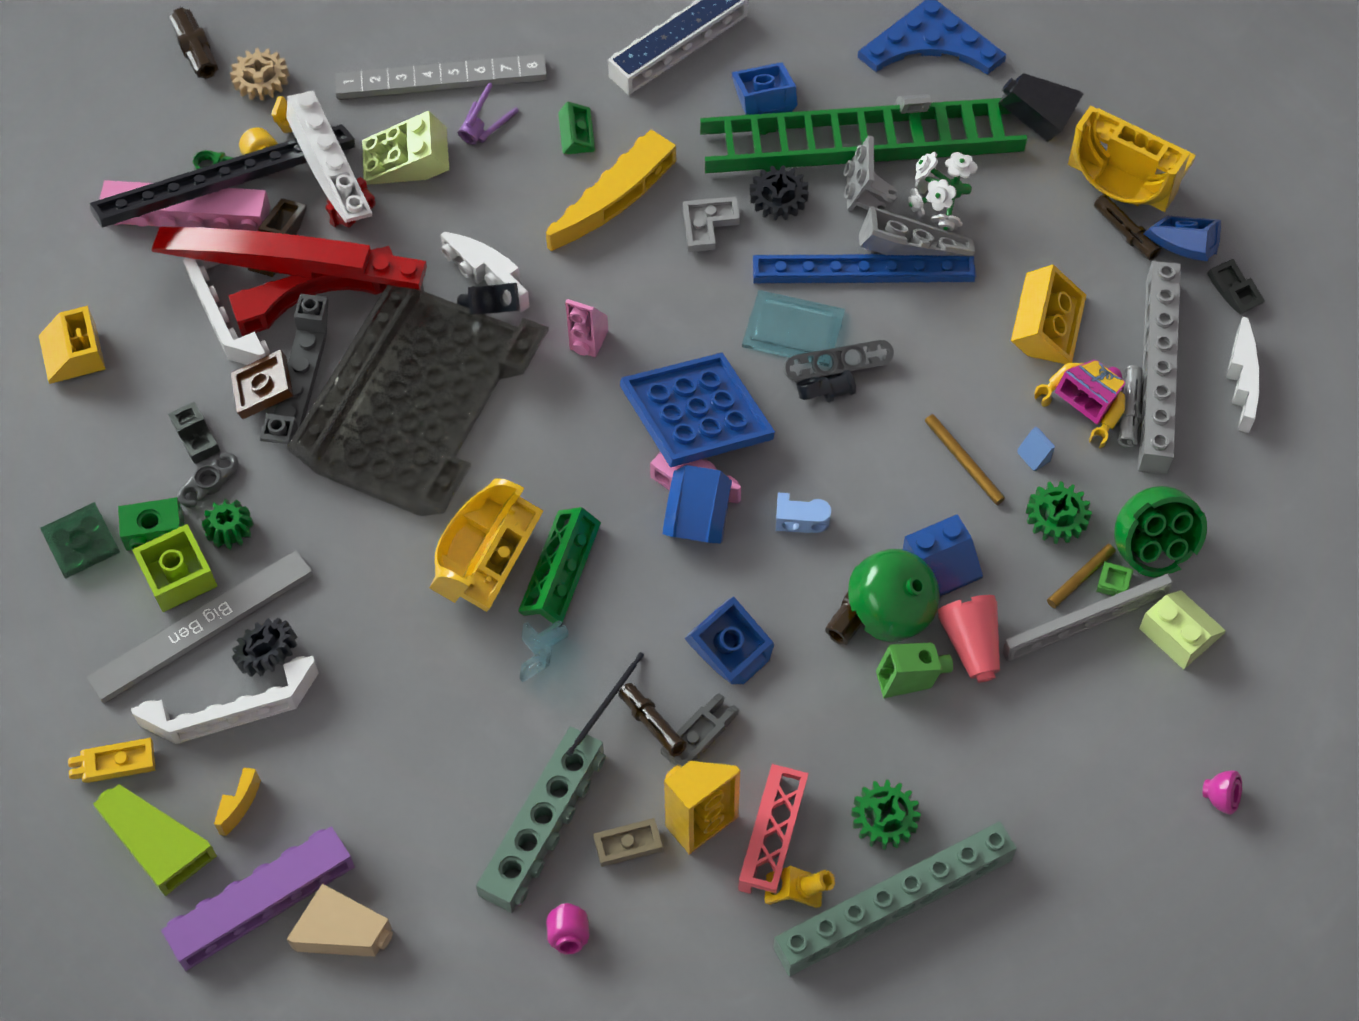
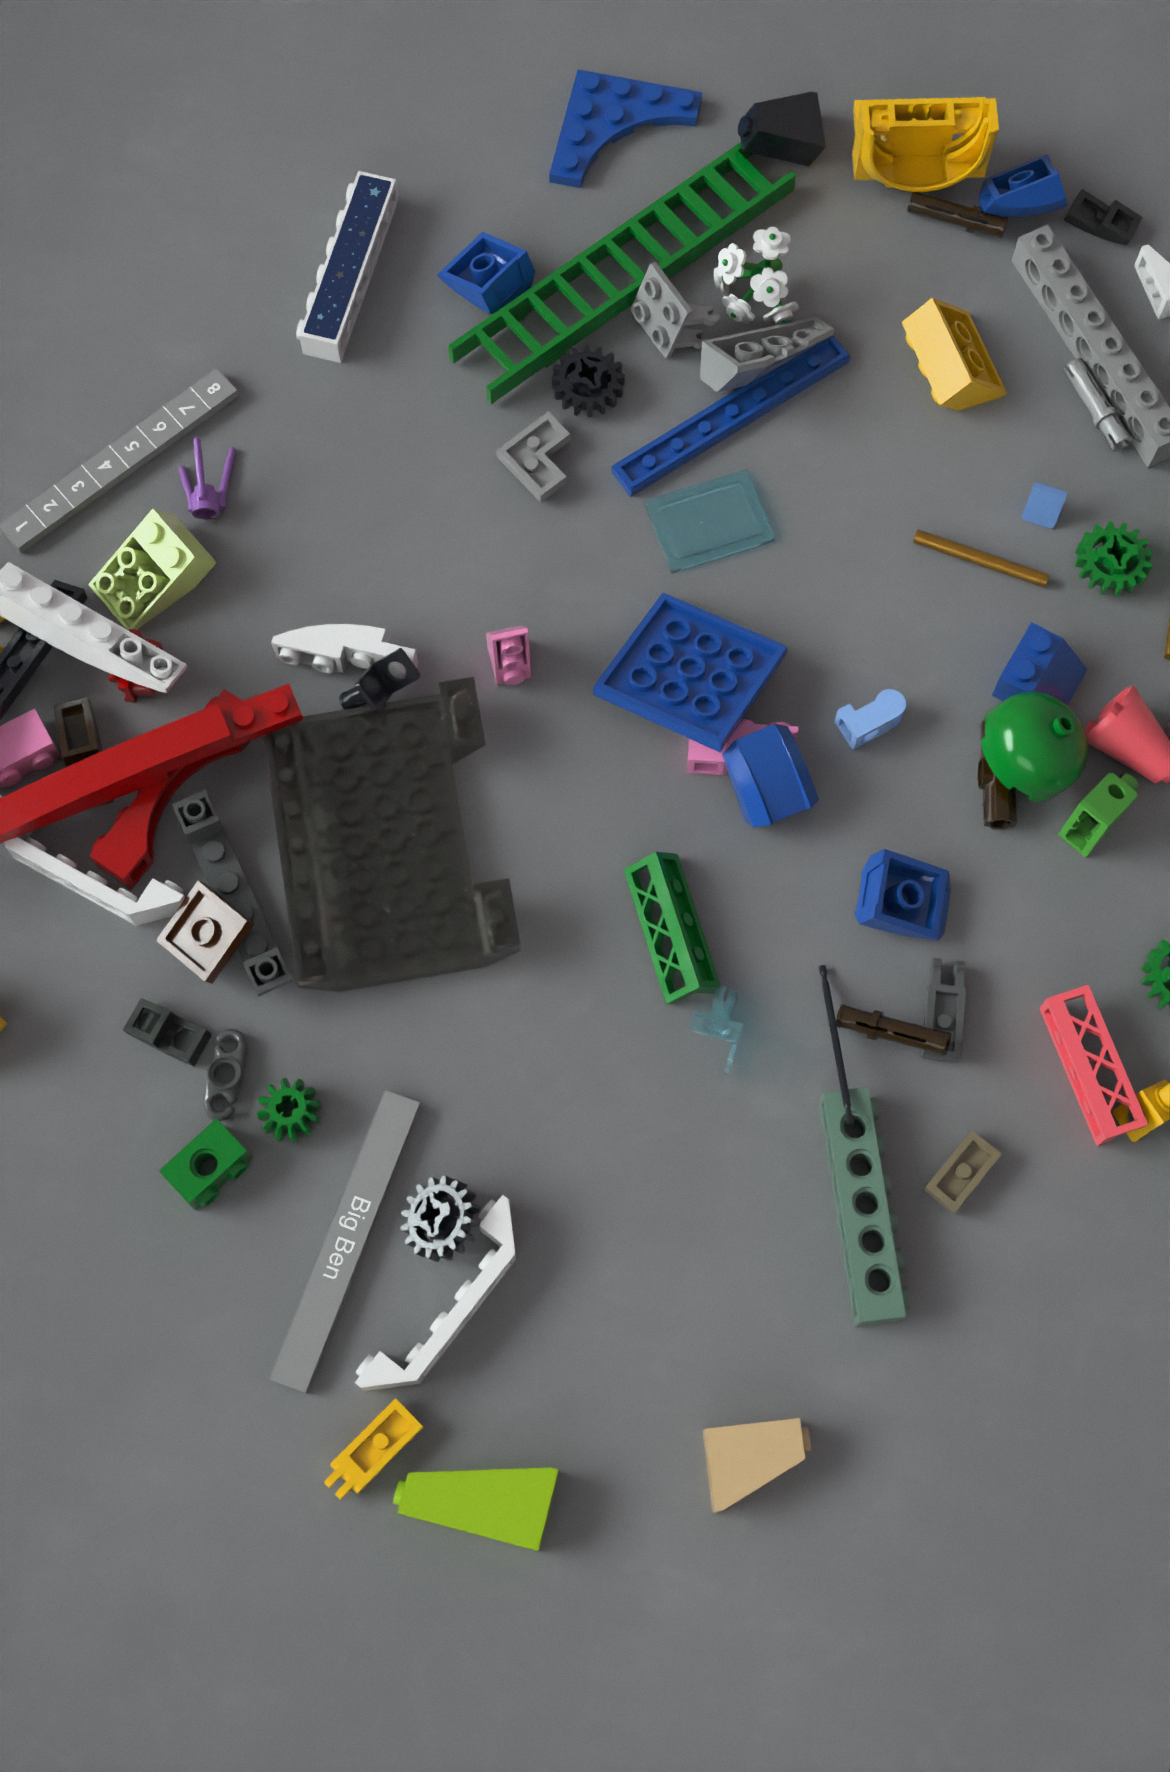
camera: 35 degrees left, 10 degrees up
(79, 540) = (138, 1234): clear green plate -> none
(175, 568) = (275, 1197): lime brick -> none
(235, 807) = (543, 1410): yellow slope -> none
(257, 898) = (644, 1487): medium lavender brick -> none
(476, 551) = (591, 963): yellow piece -> none
(567, 928) = (974, 1300): dark pink head -> none
(576, 129) = (315, 434): green slope -> none
(615, 189) = (414, 476): yellow slope -> none
(700, 801) = (1026, 1091): yellow slope -> none
(830, 388) = (786, 573): black connector -> none
(838, 359) = (783, 527): dark grey beam -> none
(913, 103) = (656, 200): light grey slope -> none
(1092, 391) = (1056, 411): torso -> none

